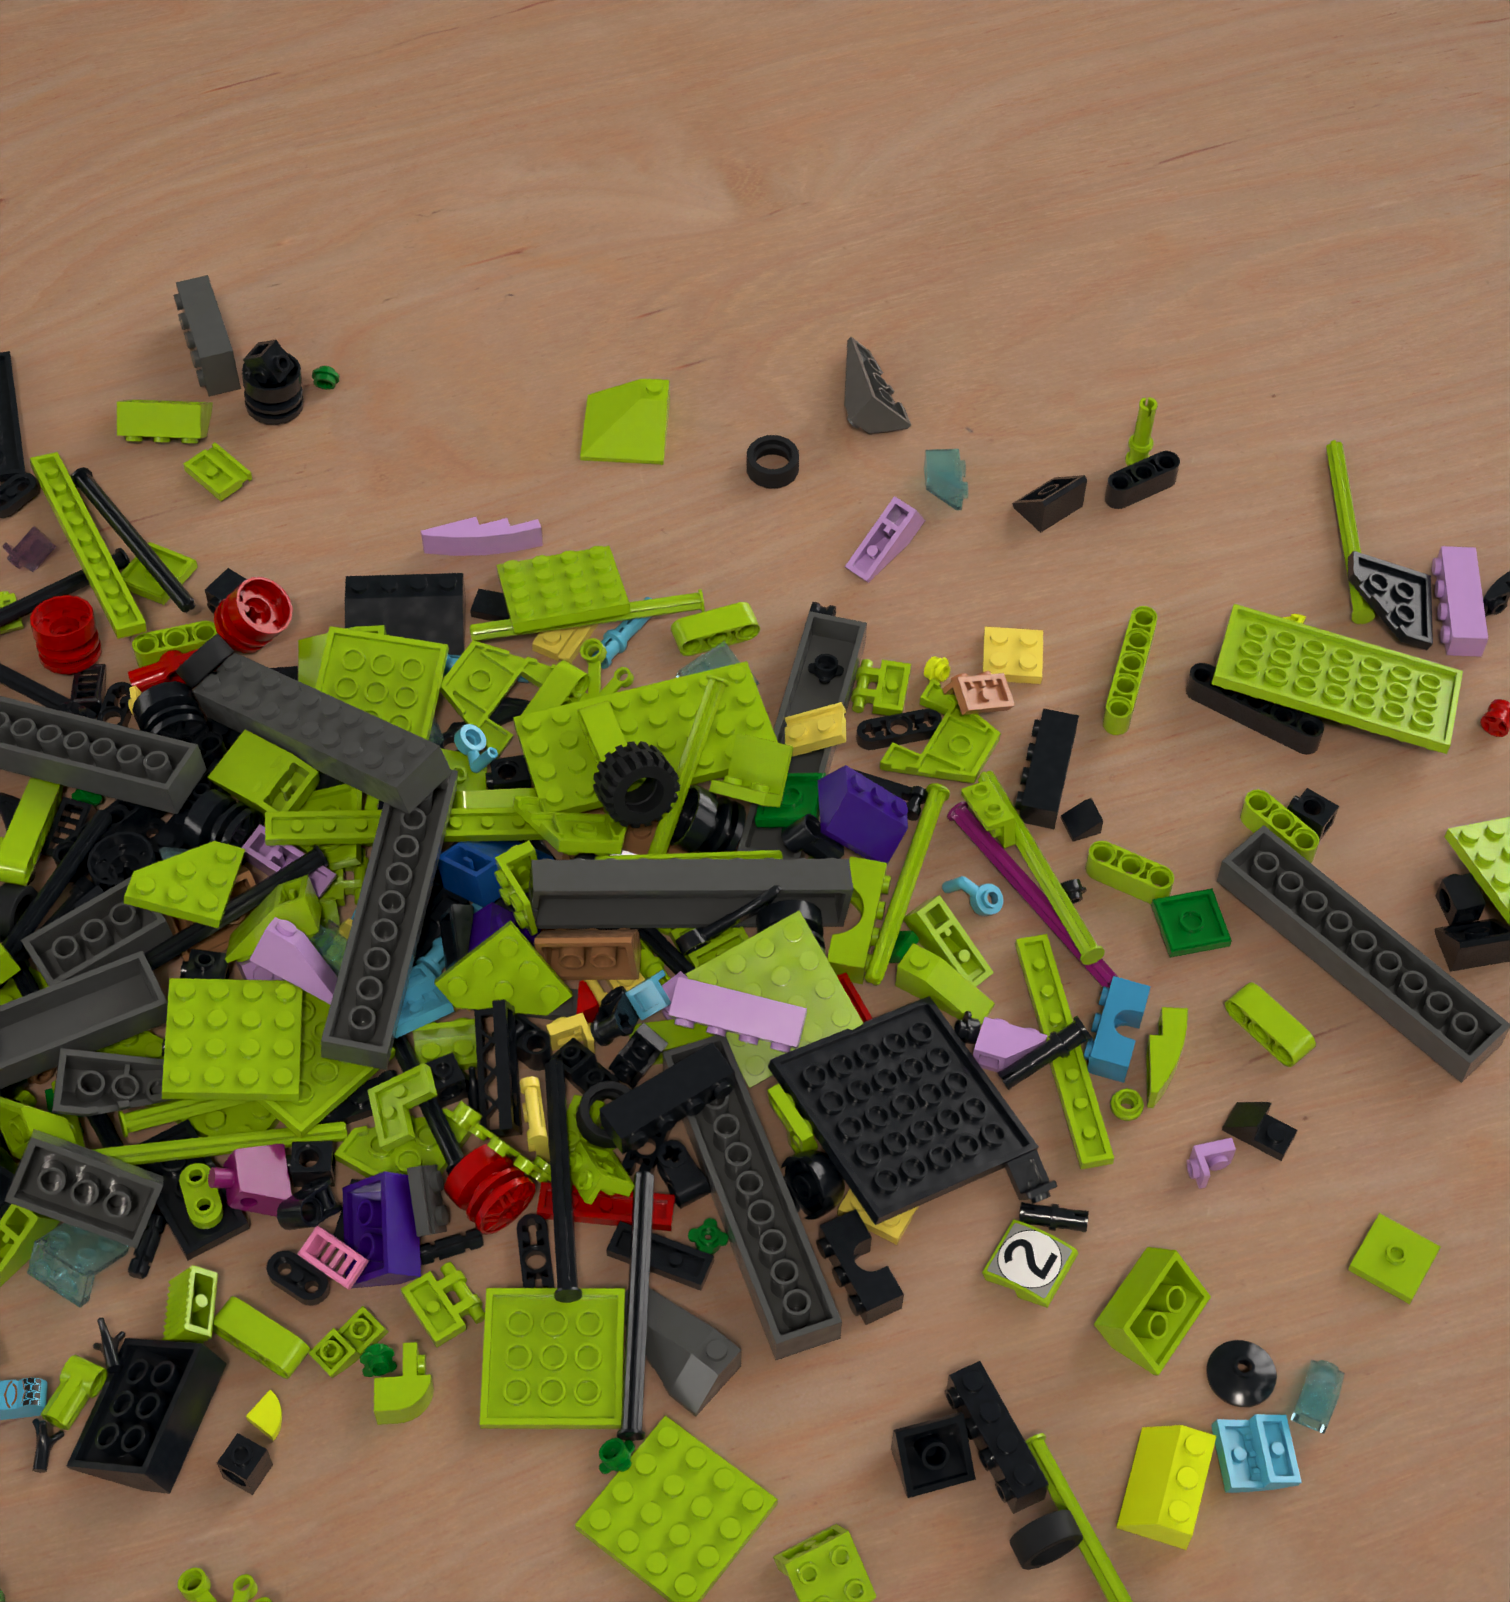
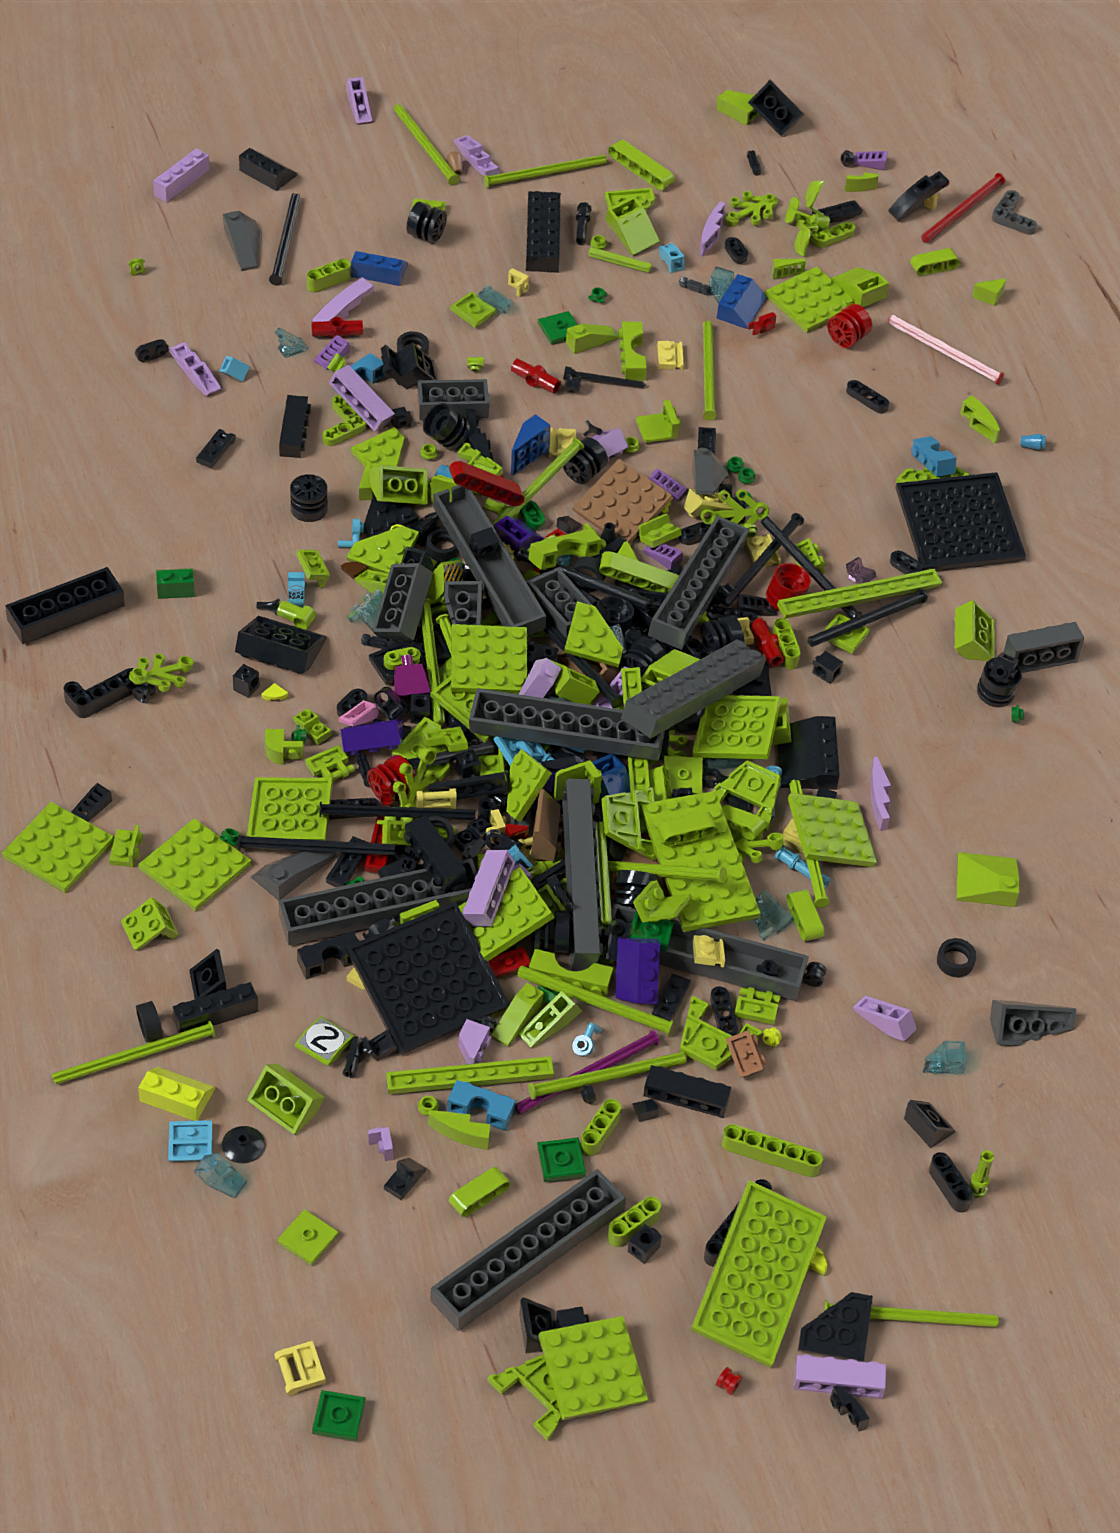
camera: 90 degrees right, 5 degrees down
(109, 1347) = (320, 628): black bar -> none
(191, 1306) = (335, 656): lime brick -> none
(204, 661) = (759, 643): black tyre -> none
(217, 471) = (930, 661): lime plate -> none
(253, 614) = (791, 666): red wheel -> none
(260, 1337) = (318, 687): lime beam -> none
(426, 1198) = (386, 748): dark grey plate -> none
(470, 742) = (700, 781): medium azure plate -> none
(649, 799) = (650, 839): black tyre -> none
(991, 811) = (646, 1046): lime bracket -> none
(1014, 653) = (788, 1086): light yellow plate -> none
(1059, 1045) = (465, 1063): black pin -> none

